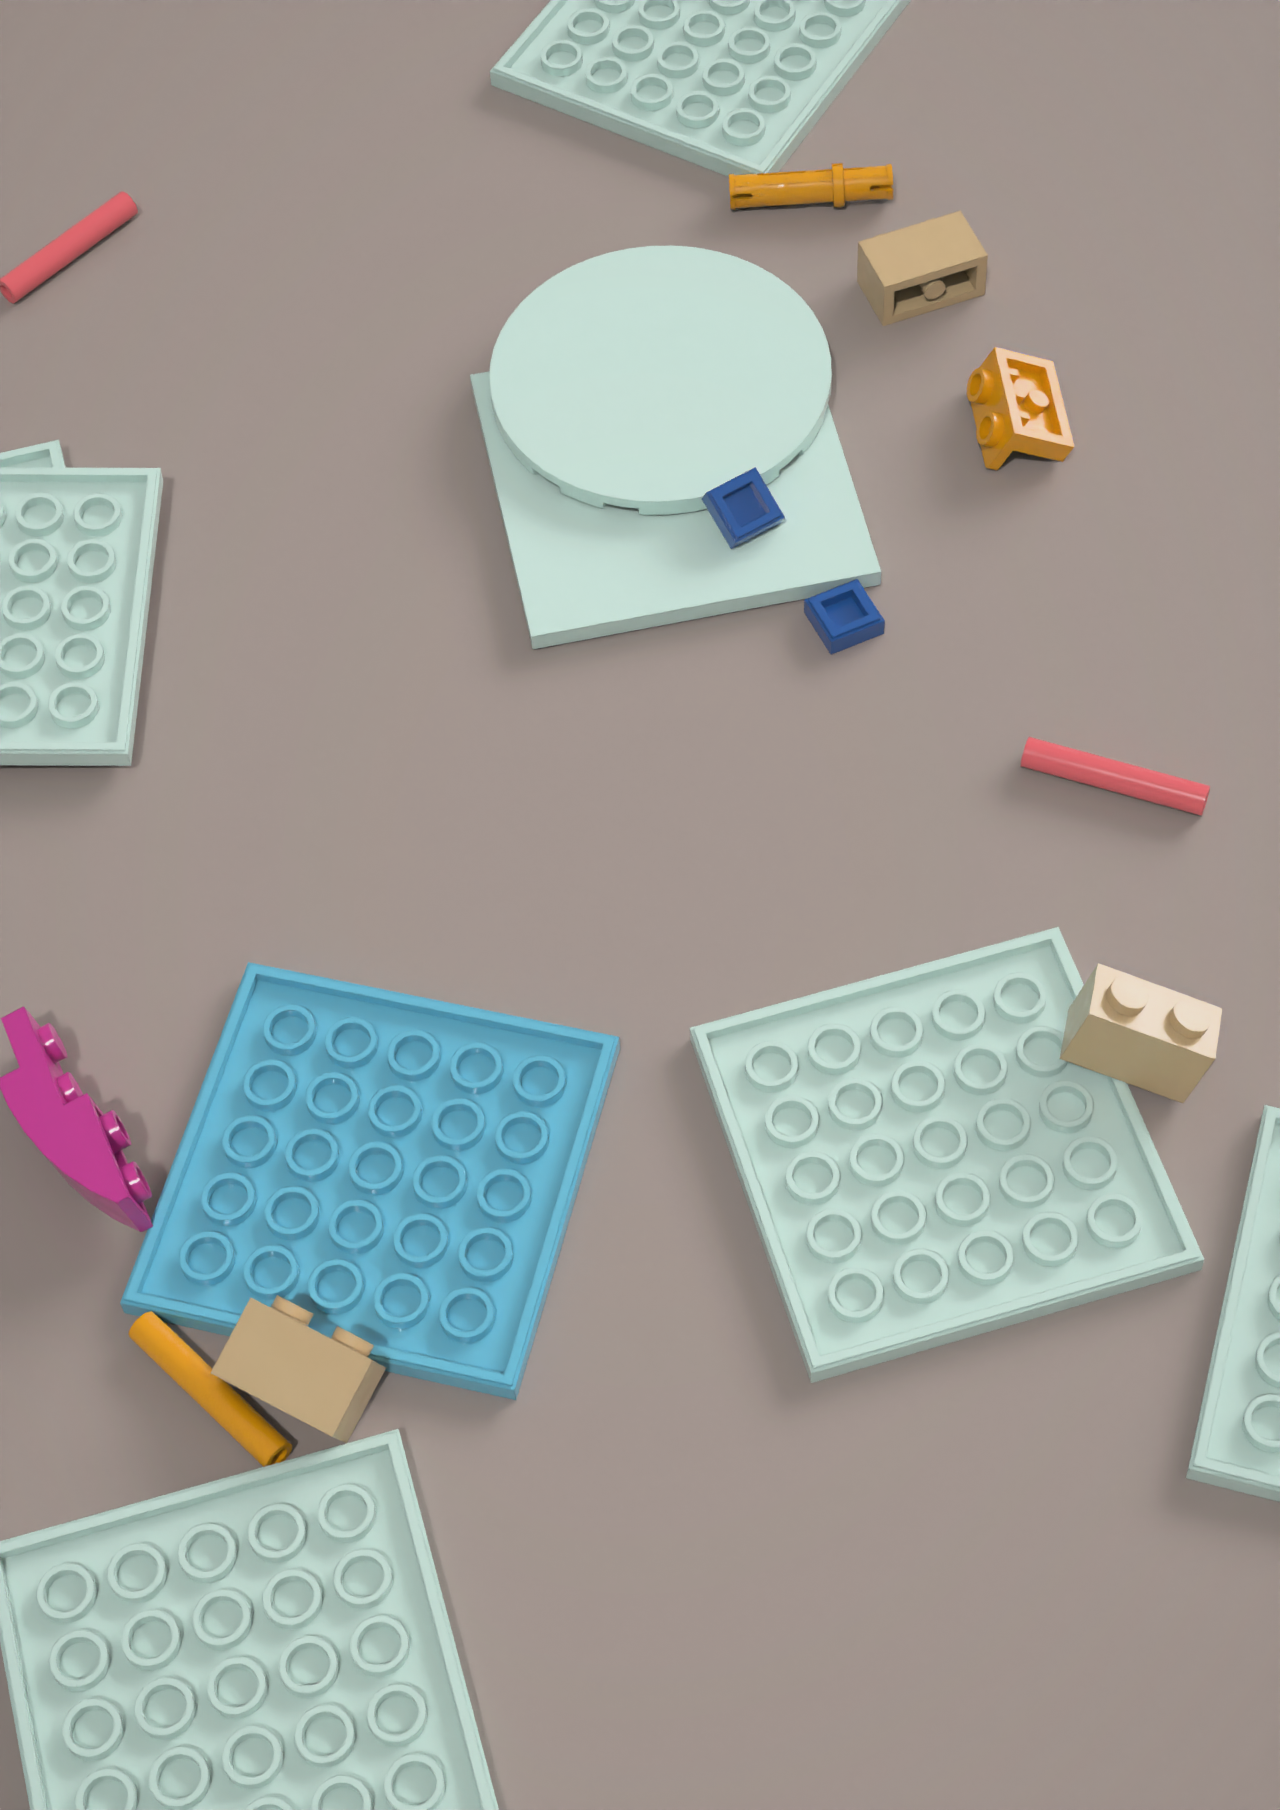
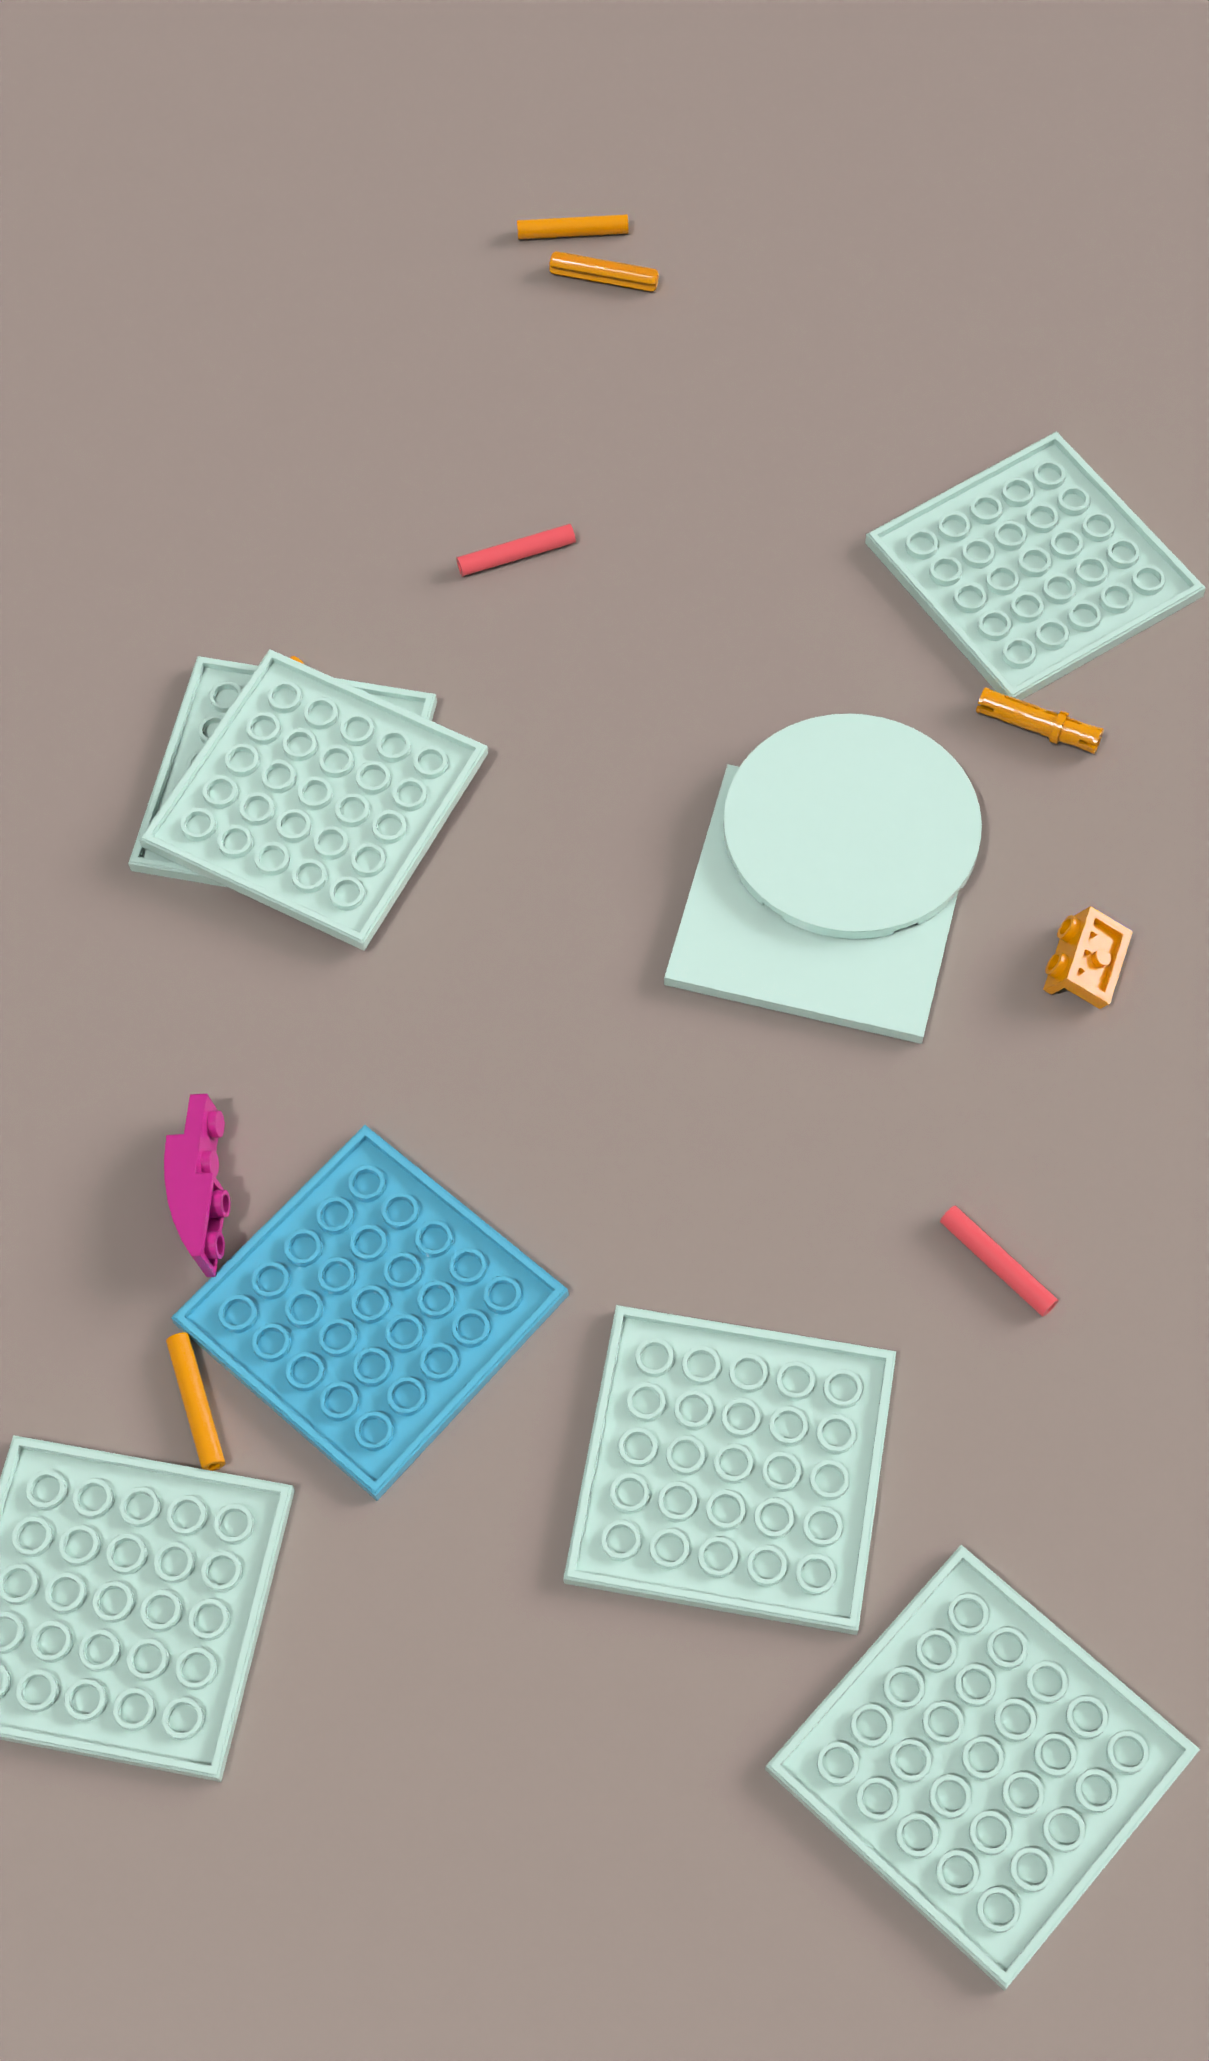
camera: 25 degrees right, 5 degrees up
(298, 1368) = (250, 1417): tan brick -> none
(743, 508) = (851, 949): blue tile -> none
(844, 616) = (882, 1057): blue tile -> none
(921, 268) = (1080, 818): tan brick -> none
(1141, 1033) = (900, 1457): tan brick -> none

